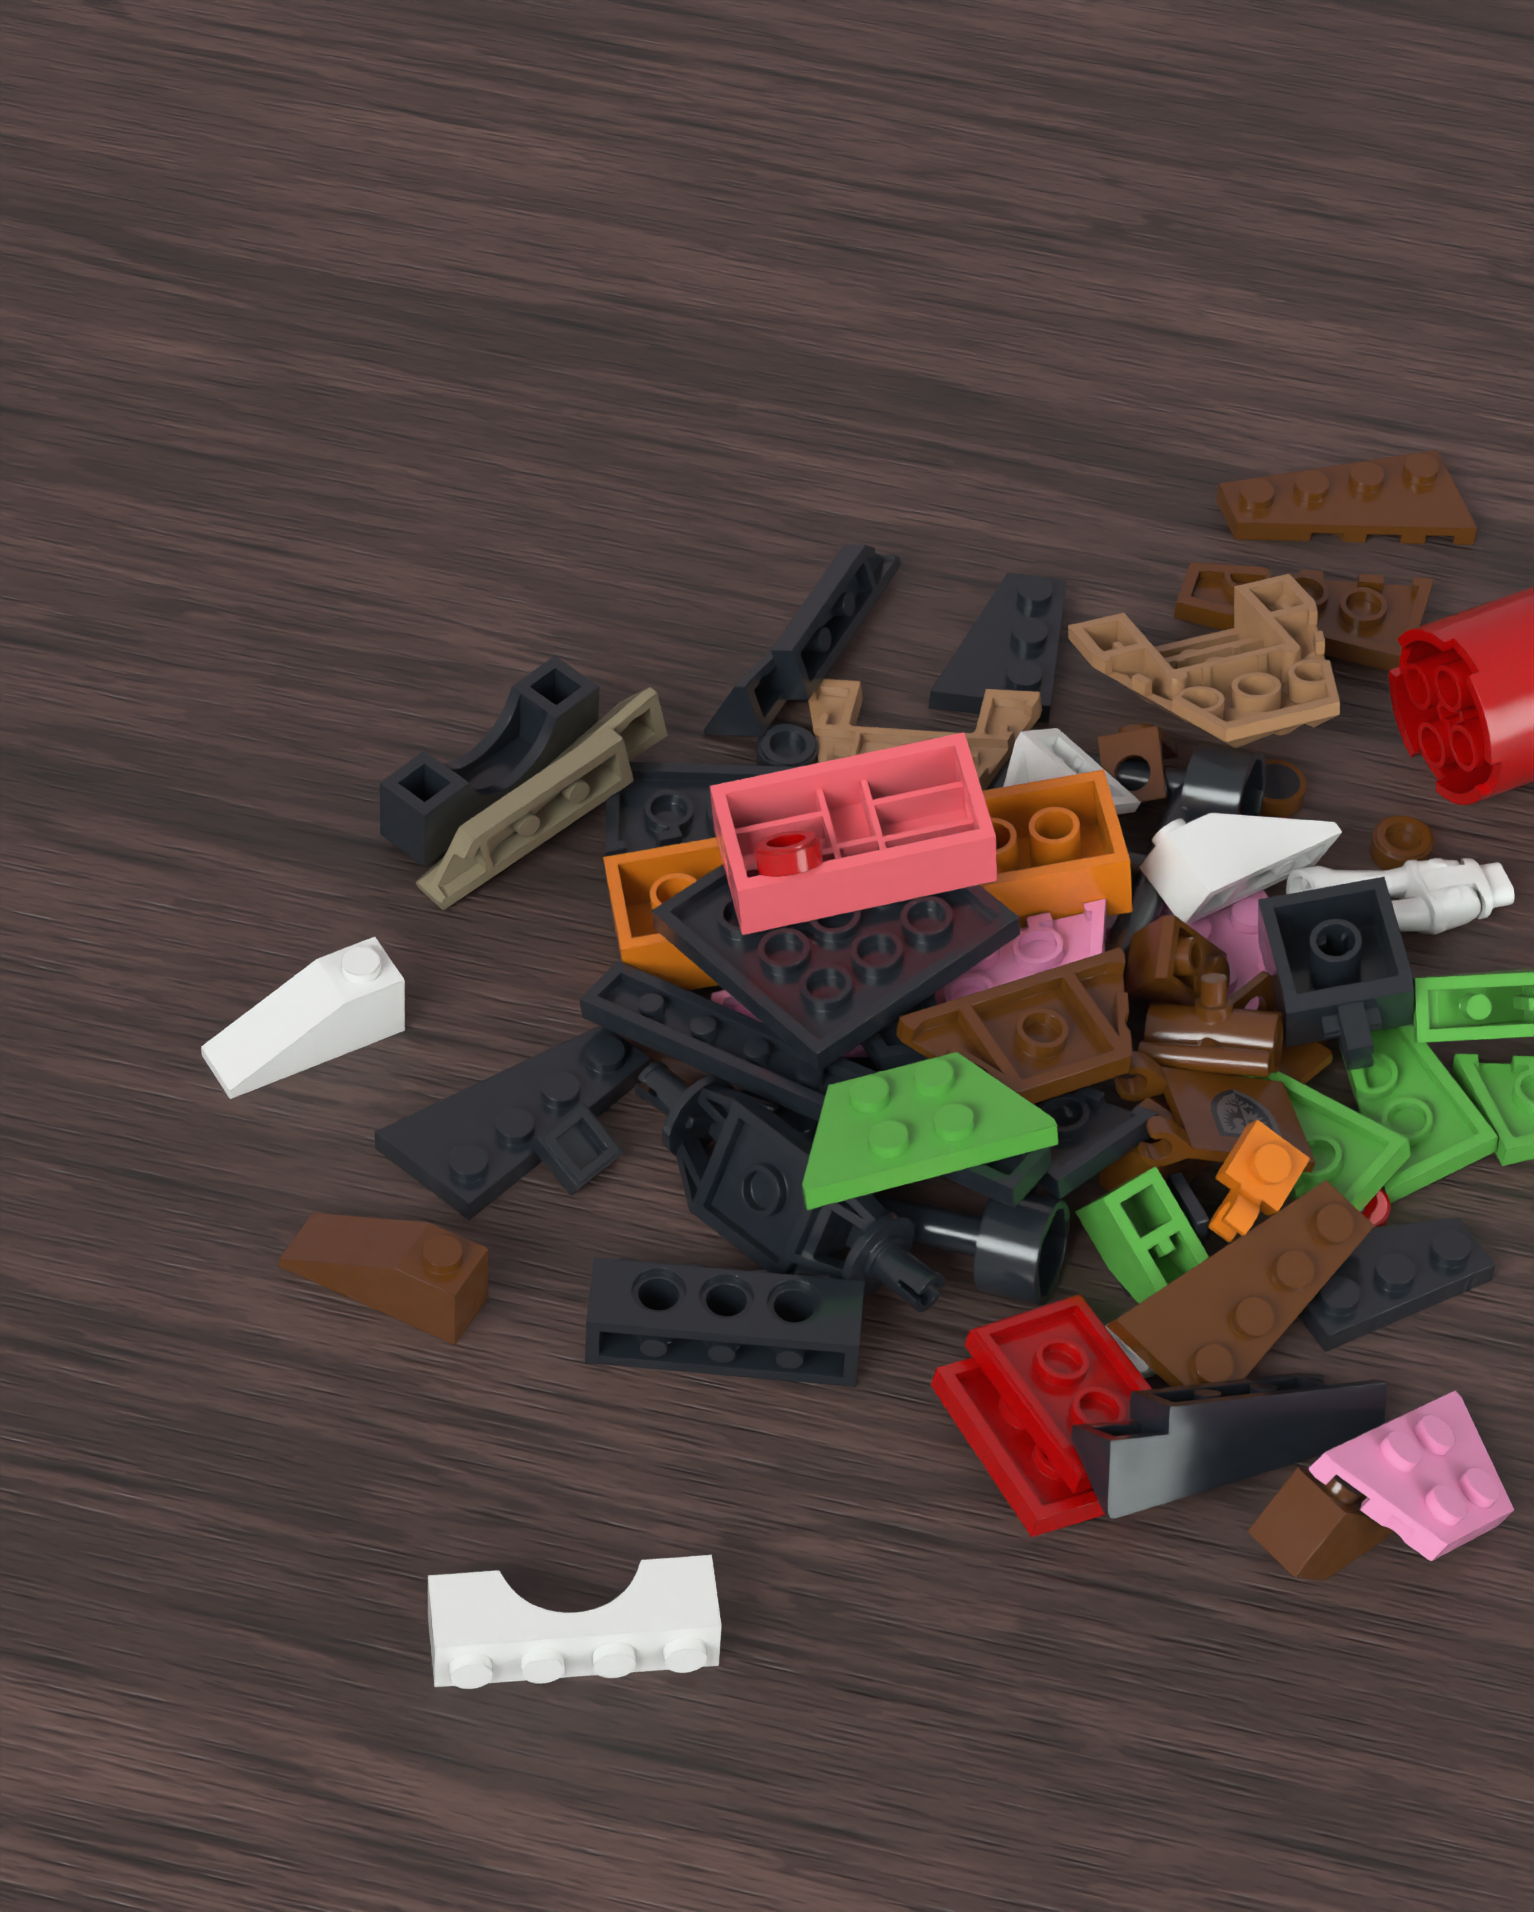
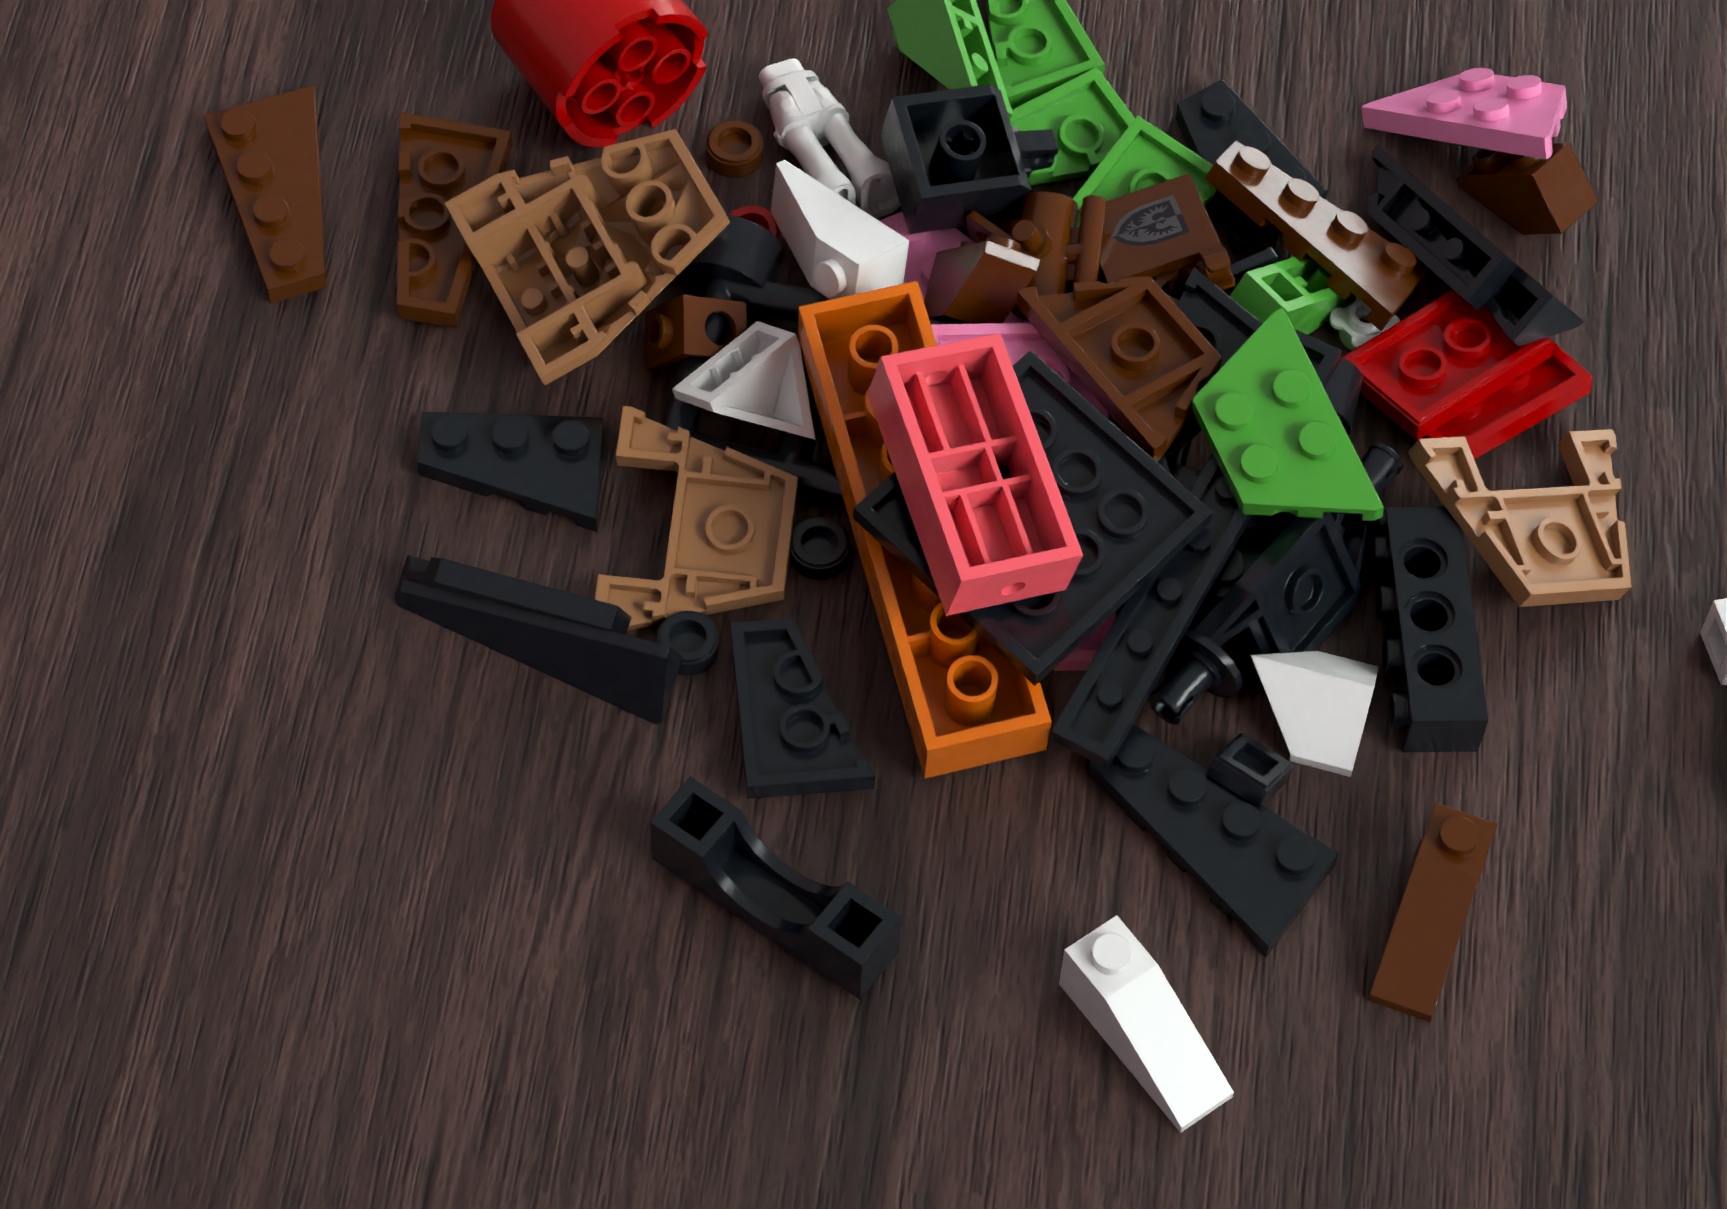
camera: 95 degrees left, 10 degrees up
(549, 801) = (806, 825): dark tan wedge -> none
(652, 1212) = (1318, 705): none -> white slope
(788, 853) = (1039, 509): red tile -> none
(819, 1443) = (1539, 541): none -> medium nougat wing
(1260, 1178) = (1232, 206): orange plate -> none

